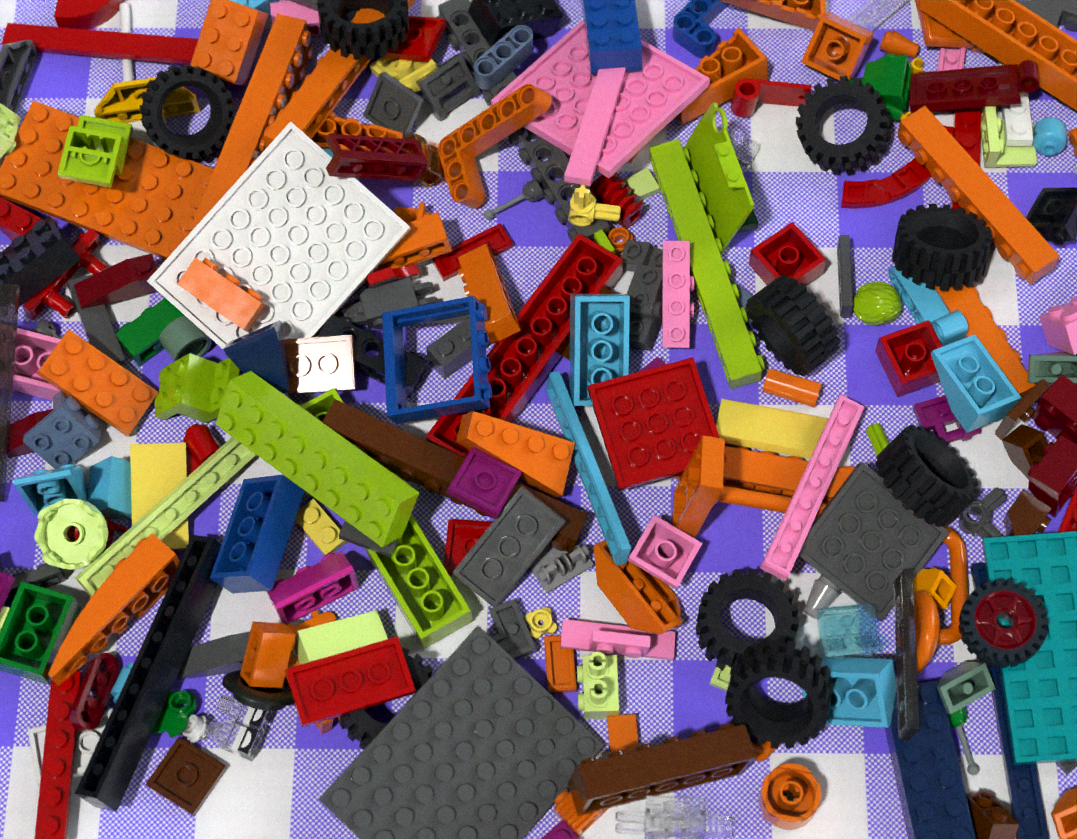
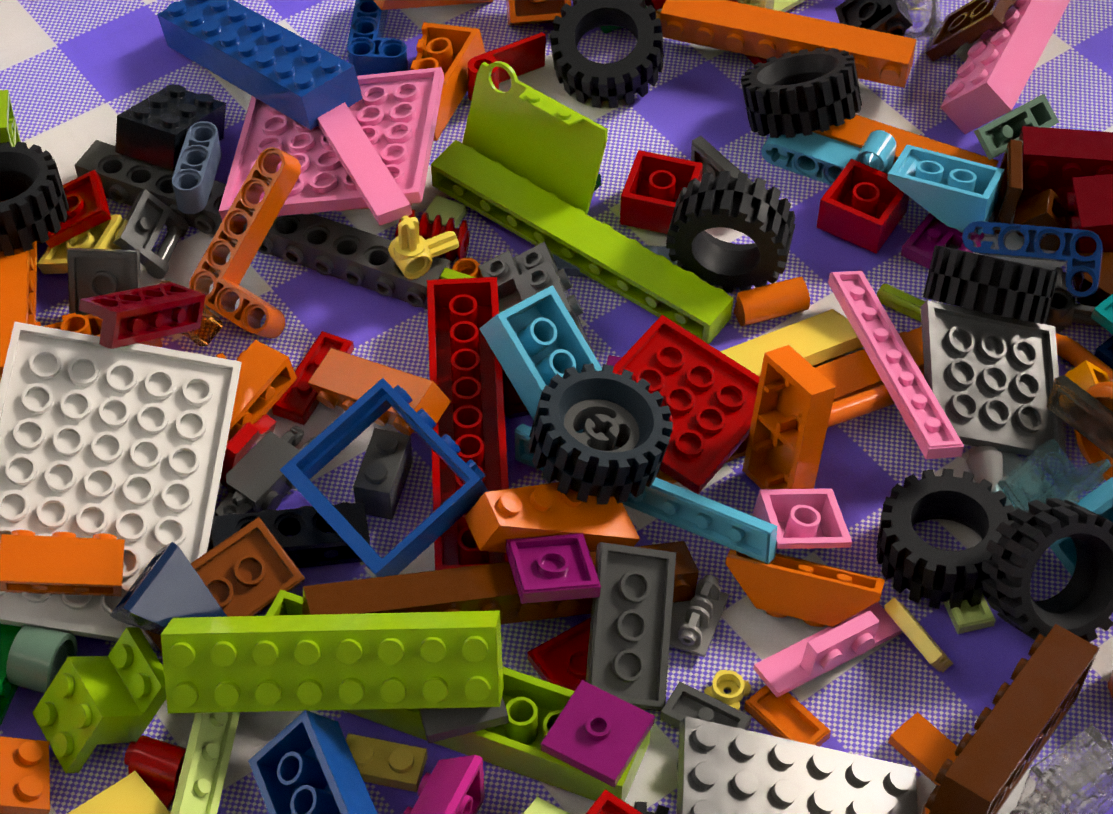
camera: 40 degrees left, 15 degrees down
(431, 599) = (598, 733): none -> magenta plate
(531, 192) = (331, 283): hinge -> none
(595, 410) = (611, 414): none -> black wheel
(600, 686) = (855, 707): yellowish green brick -> none
(676, 294) = (582, 277): bright pink bracket -> none
(677, 669) = (917, 635): none -> light yellow tile
(877, 304) = (786, 176): lime hair -> none
(887, 190) = (692, 89): red tile -> none
(983, 471) = (1032, 250): none -> blue beam

